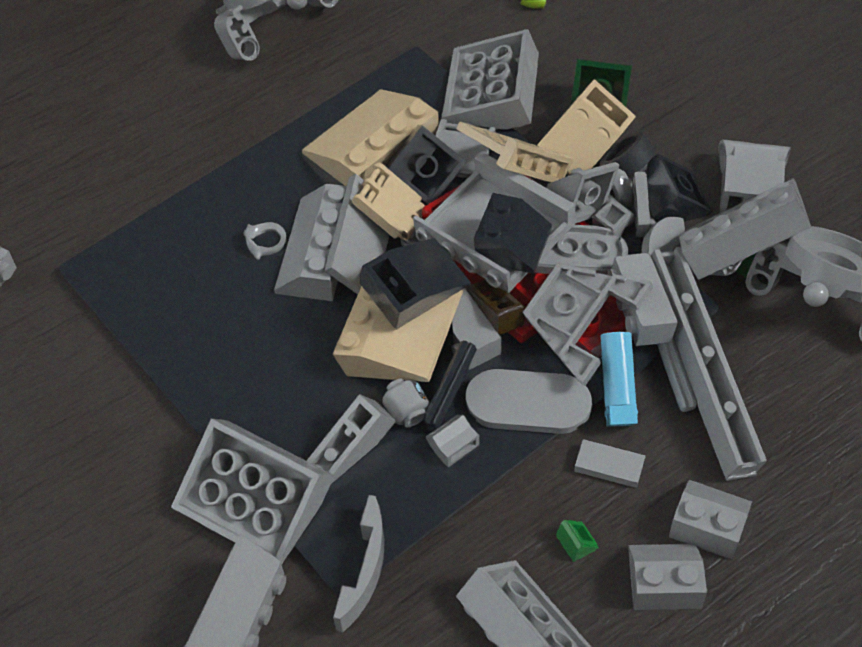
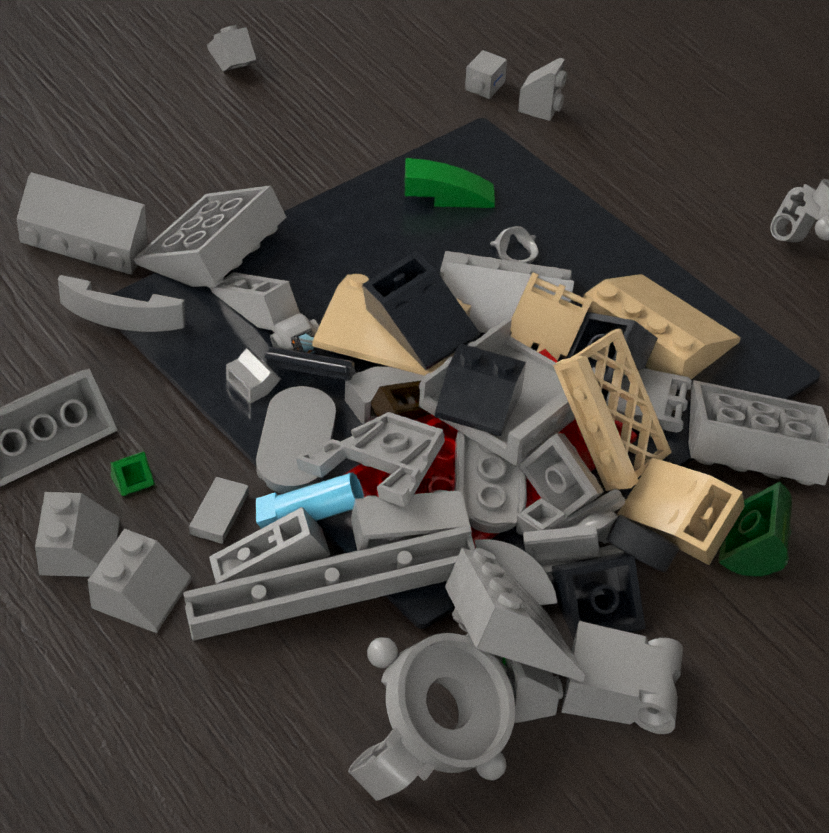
camera: 85 degrees right, 10 degrees down
(31, 210) = (542, 90): none -> light grey slope
(179, 289) = (447, 184): none -> green slope
(663, 416) = (279, 545): none -> light grey slope

